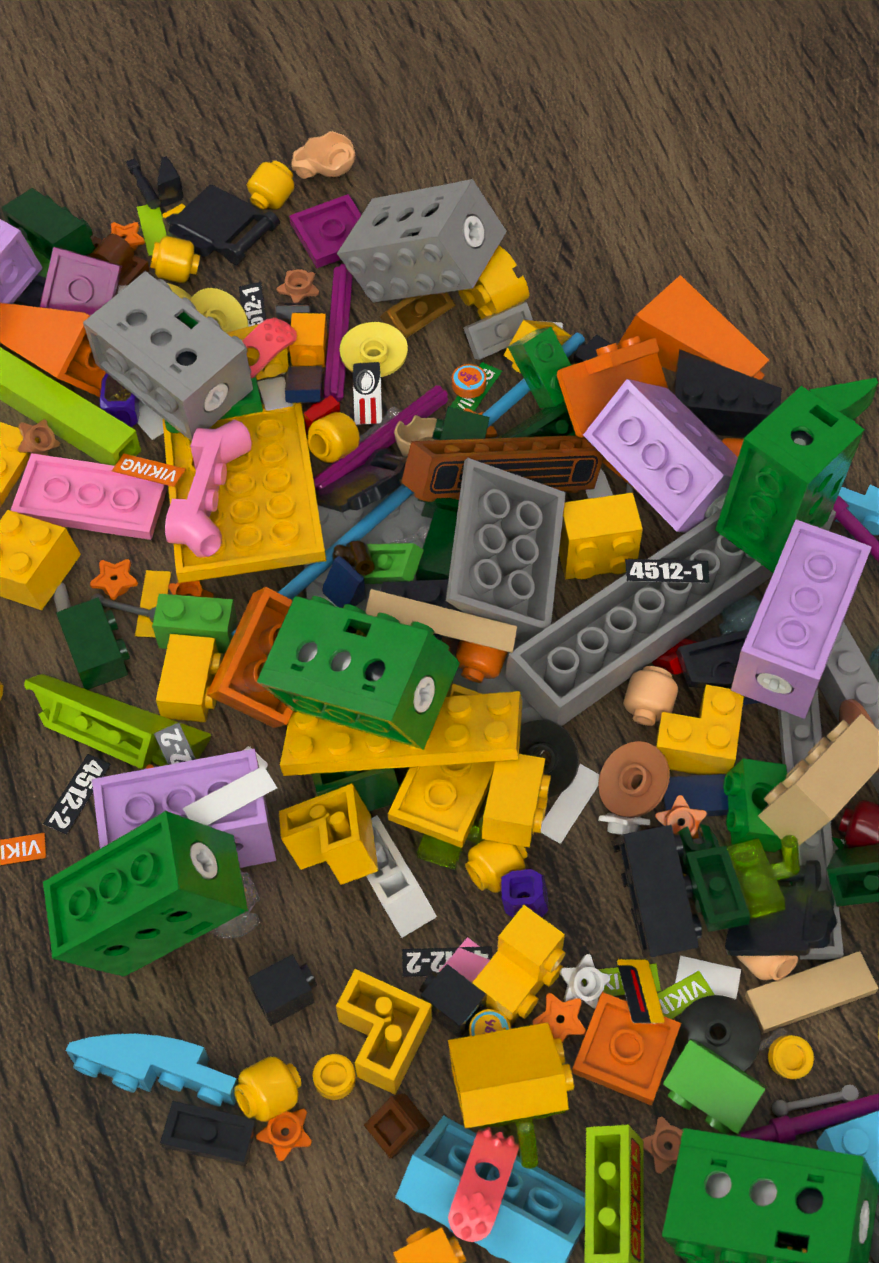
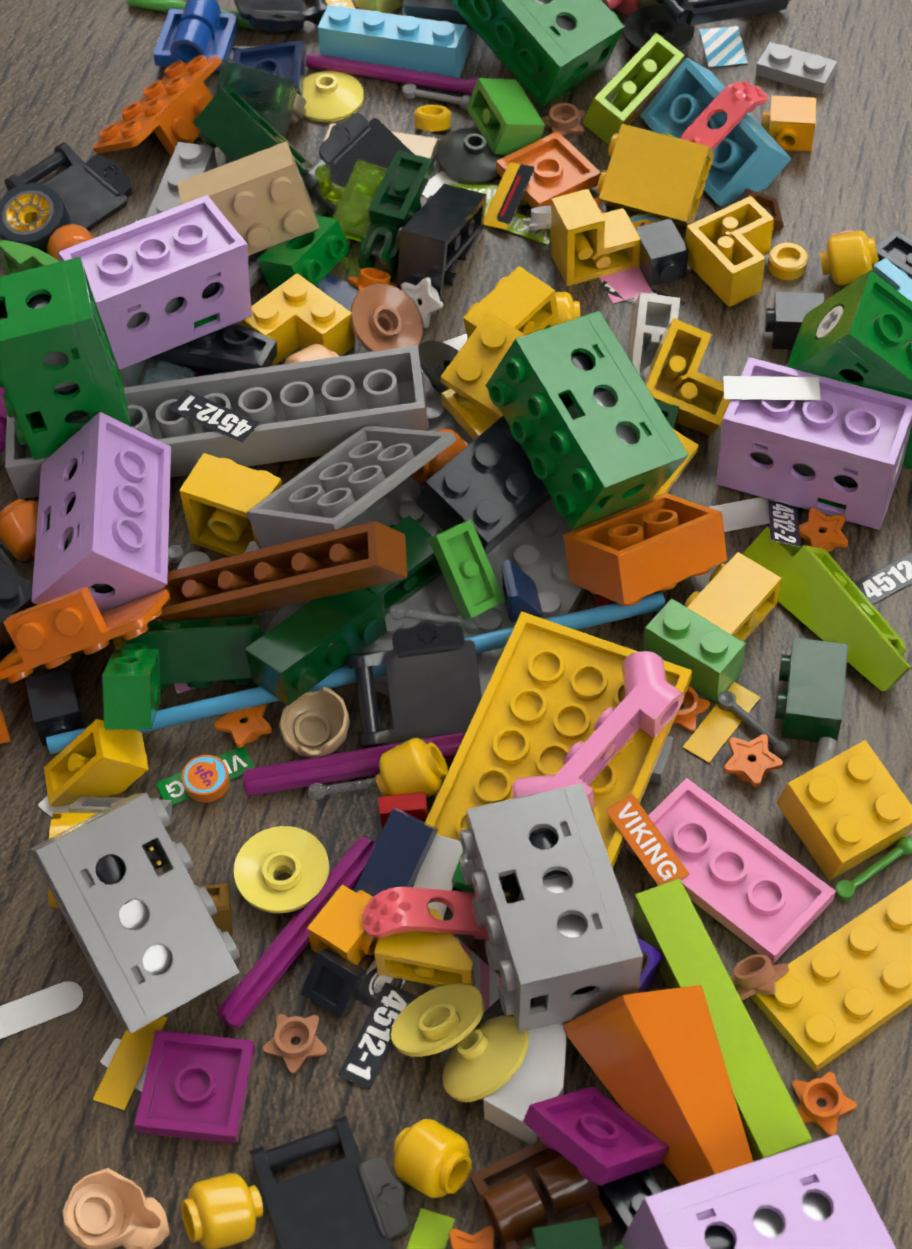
camera: 145 degrees left, 5 degrees down
(357, 555) = (487, 600): dark brown arm -> none
(367, 393) = (330, 818): sticker -> none
(444, 620) = (475, 447): tan sticker -> none
(526, 889) = (554, 266): dark purple rock -> none

